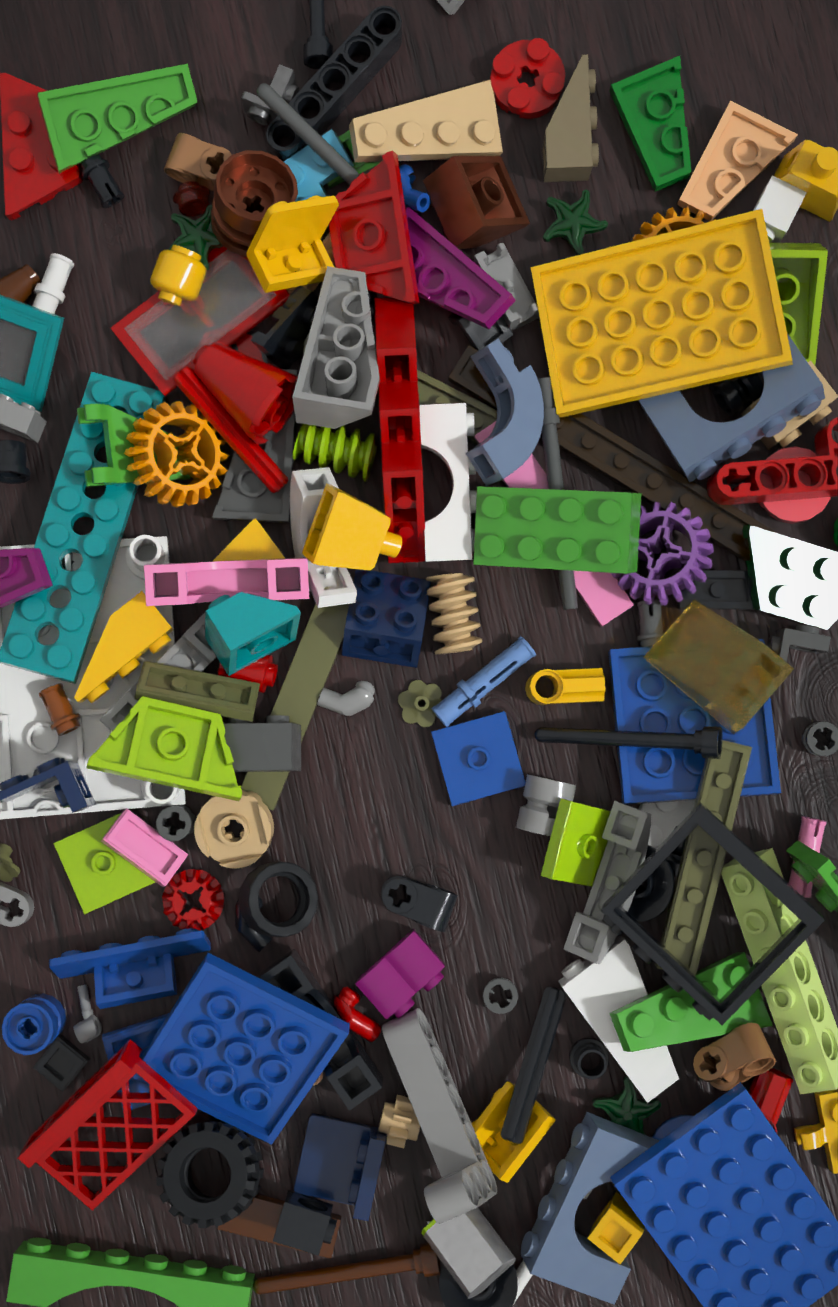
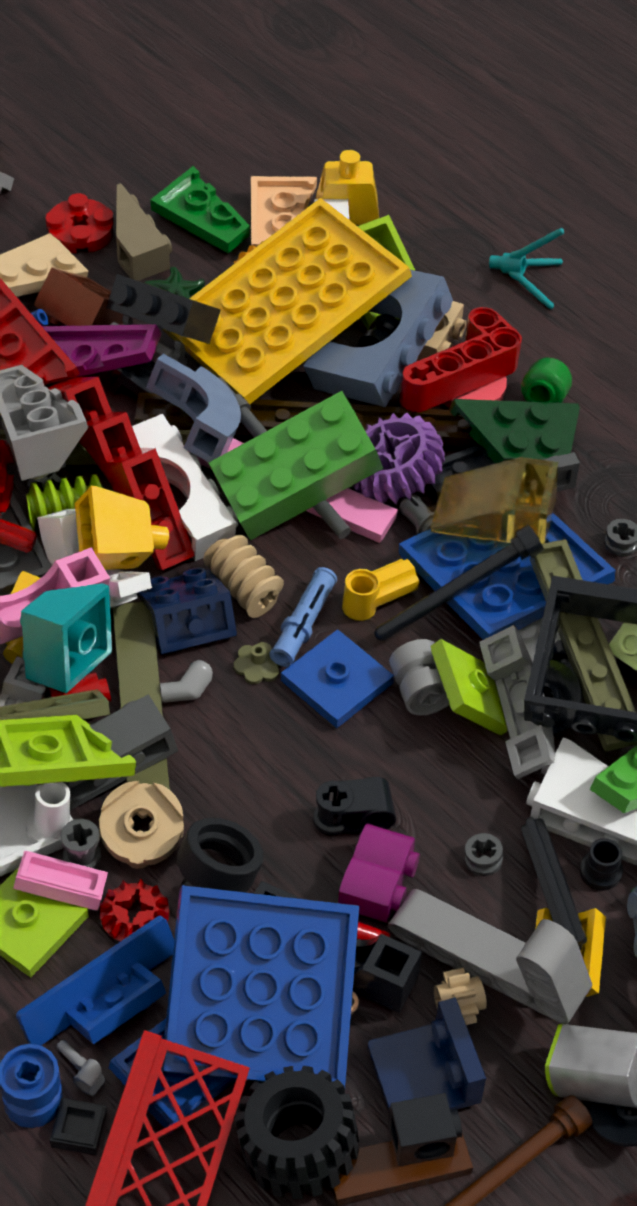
camera: 30 degrees left, 35 degrees down
(541, 294) = (163, 308): none -> black arch

